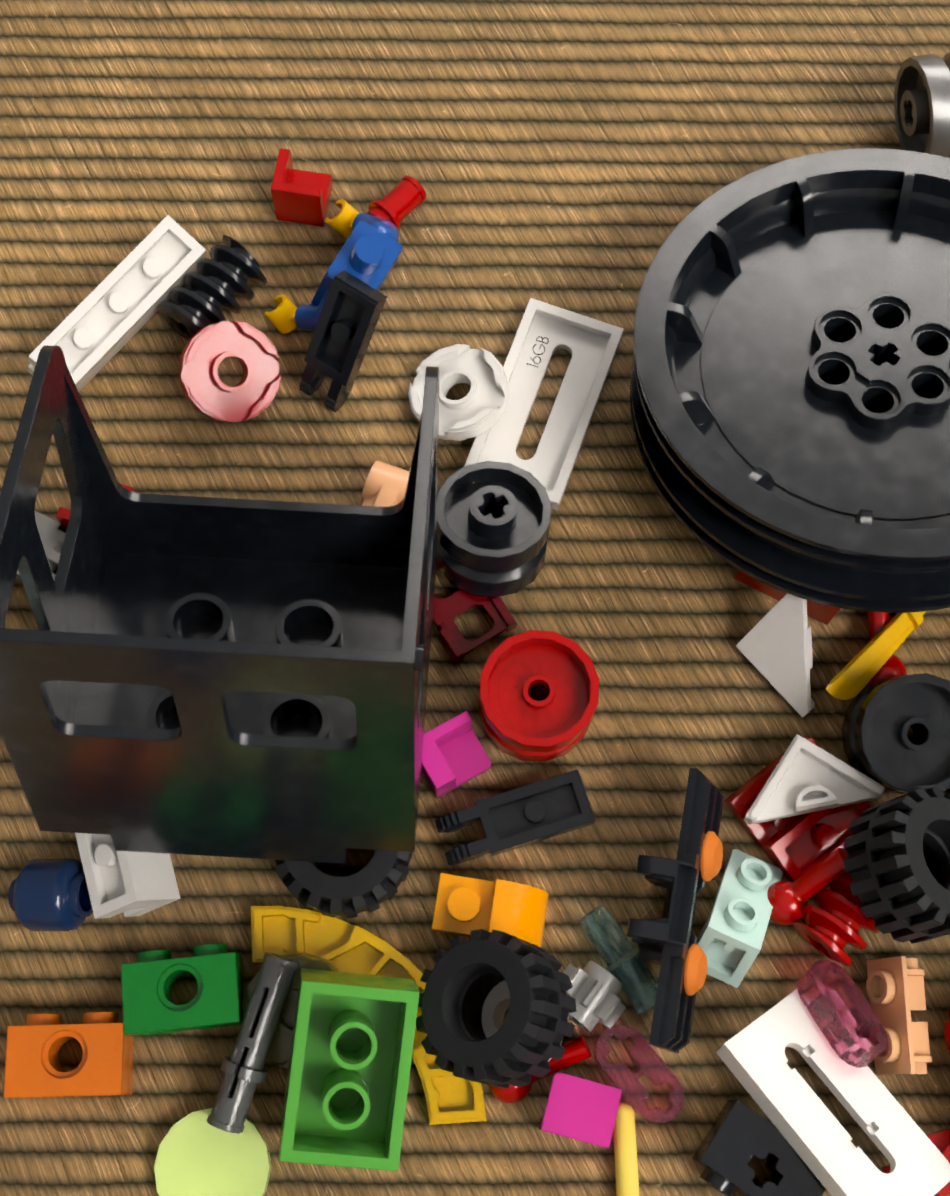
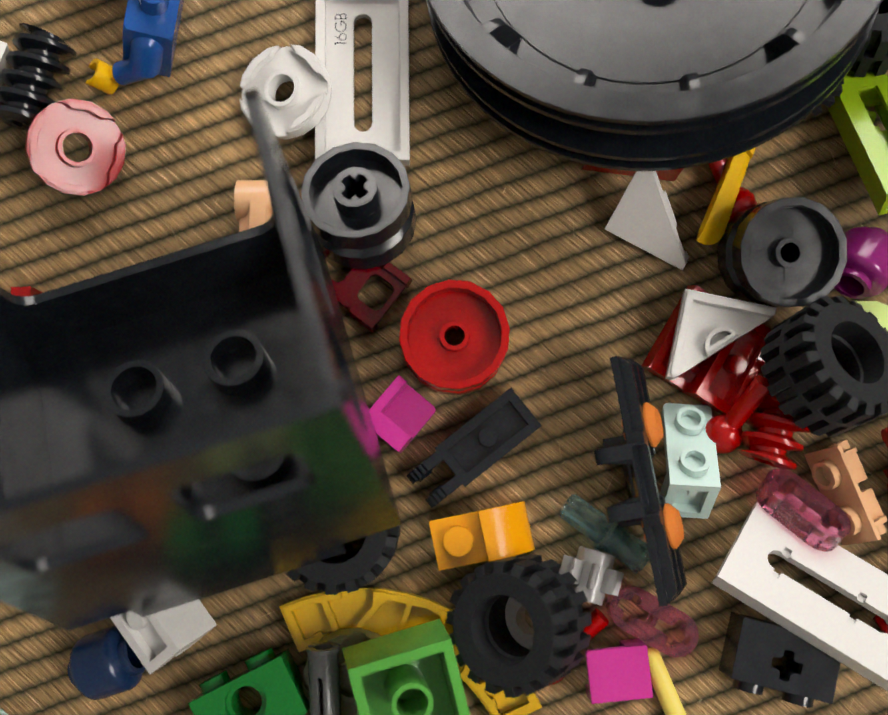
camera: 15 degrees left, 10 degrees up
(341, 337) = (161, 80): black hinge -> none

